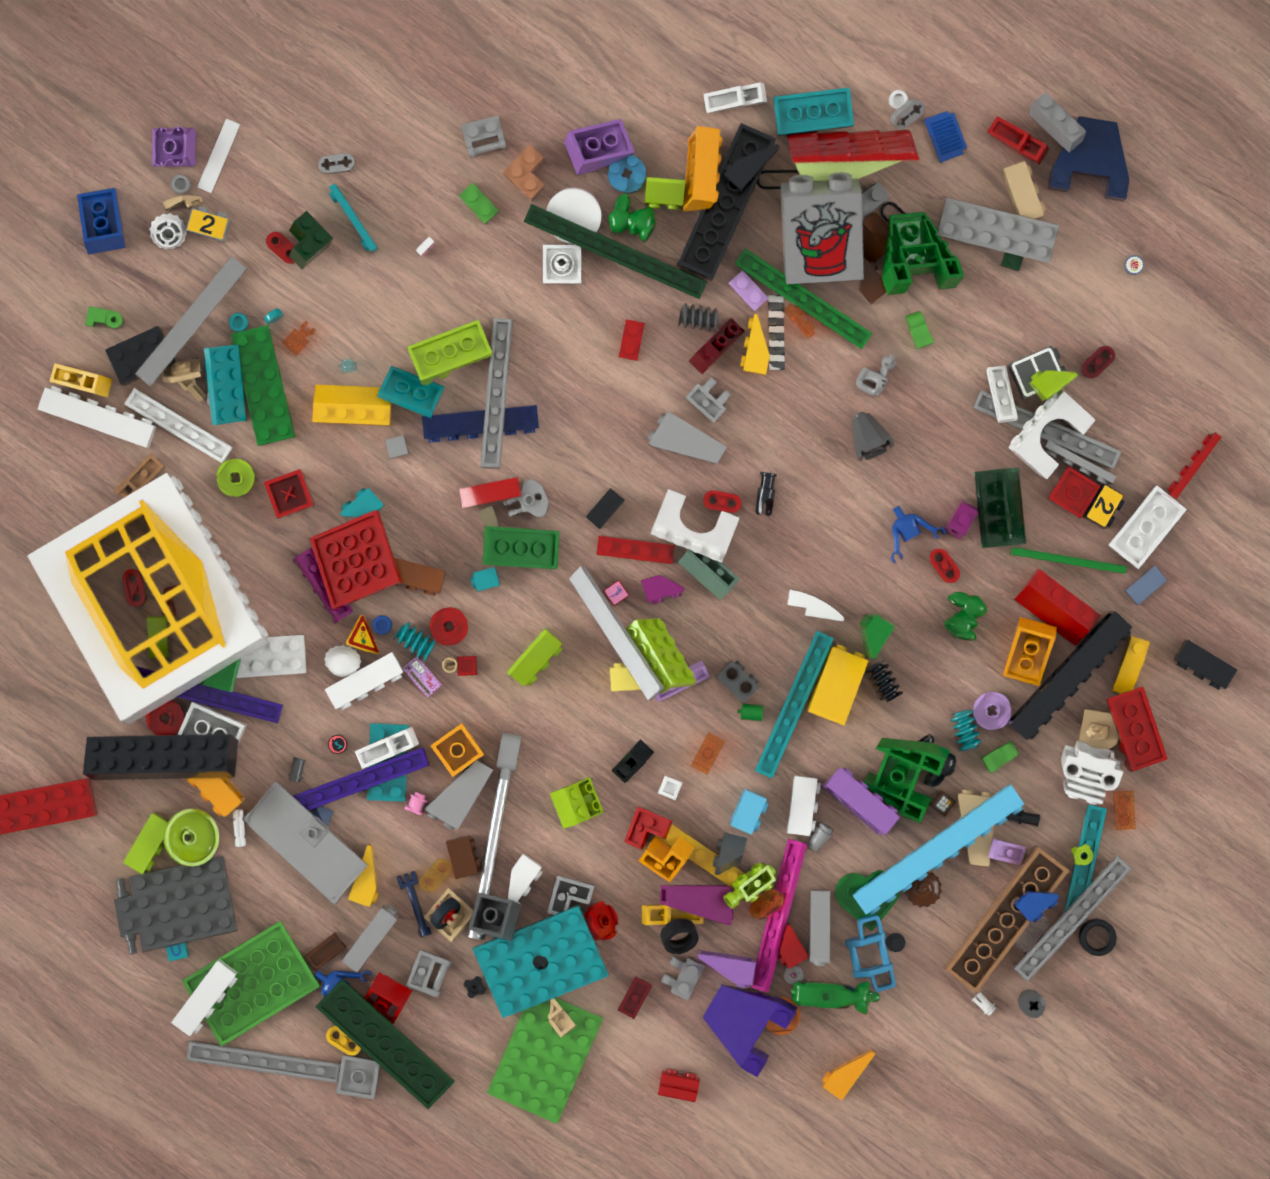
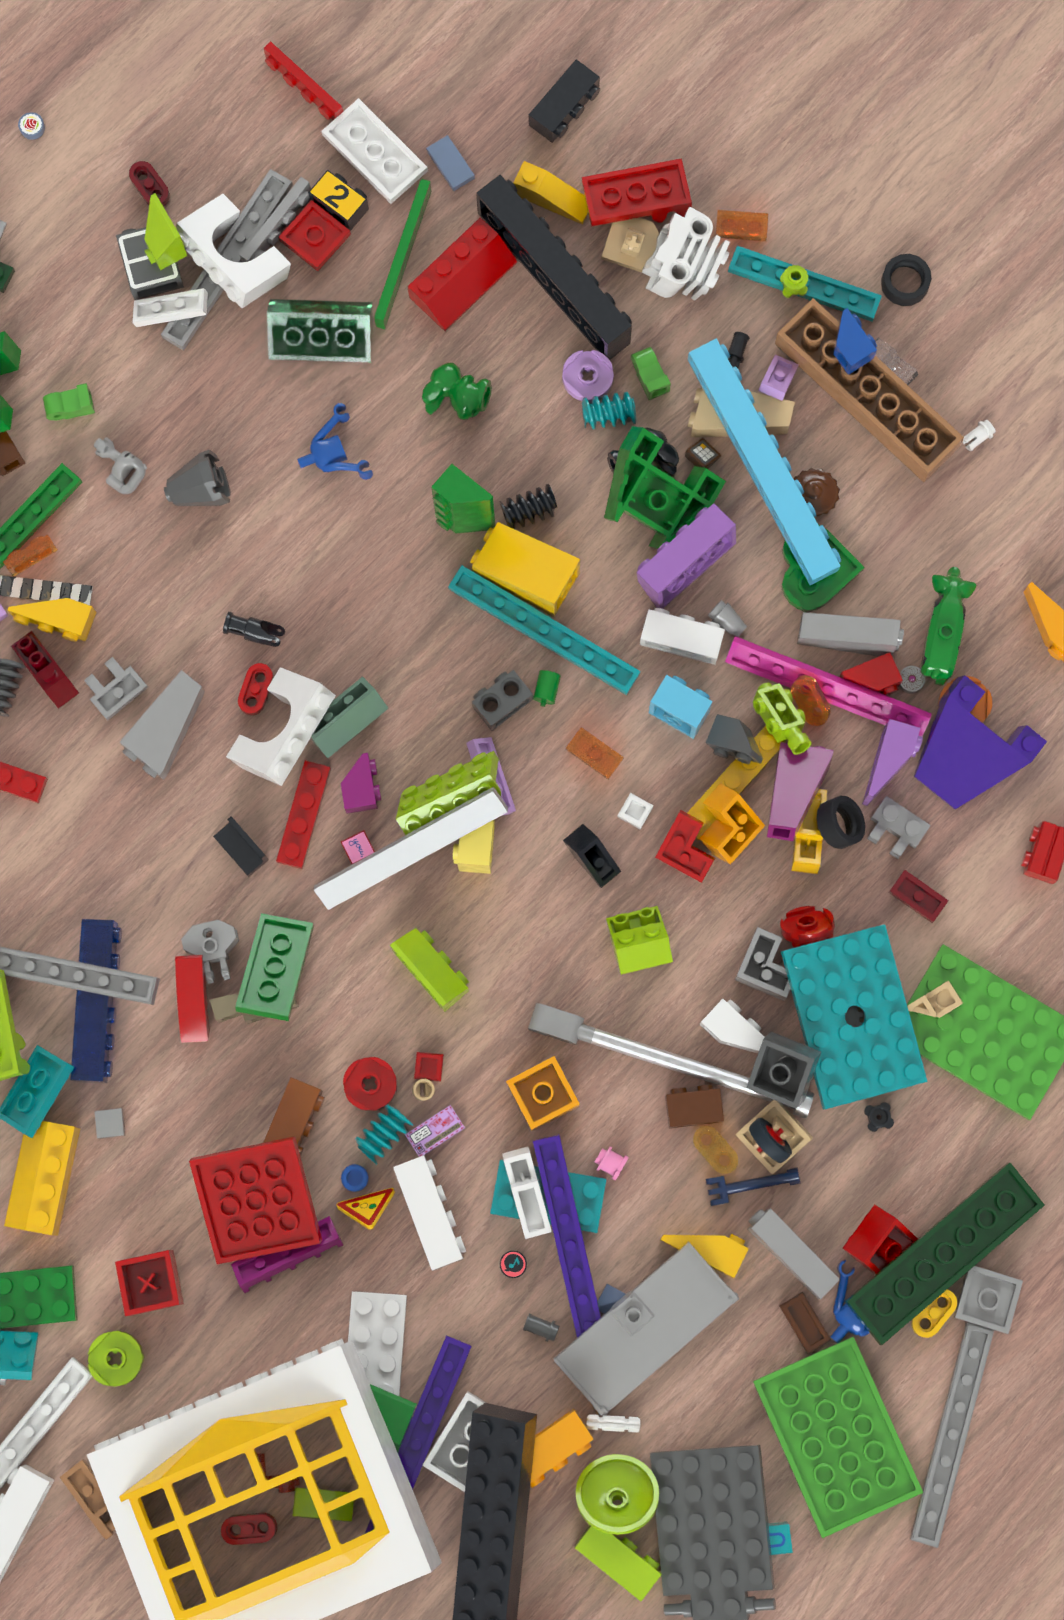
camera: 80 degrees left, 10 degrees down
(173, 726) = (454, 1499): red plate -> none
(204, 997) = (850, 1506): white brick -> none
(342, 660) = (396, 1239): white piece -> none
(363, 504) = (179, 1178): teal slope -> none
(422, 971) = (846, 1185): light grey plate -> none
(459, 796) = (608, 1099): light grey slope -> none
(485, 579) = (312, 1024): teal brick -> none
(813, 606) = (414, 586): white slope -> none
(862, 940) = (875, 576): dark azure bar -> none
(895, 942) = (882, 539): black plate -> none
(944, 565) = (385, 410): red plate -> none
(961, 519) = (325, 379): magenta torso -> none
(1029, 651) = (515, 316): light orange slope -> none
(1031, 1011) = (985, 370): dark grey piece -> none
(1072, 918) = (877, 306): light grey tile -> none

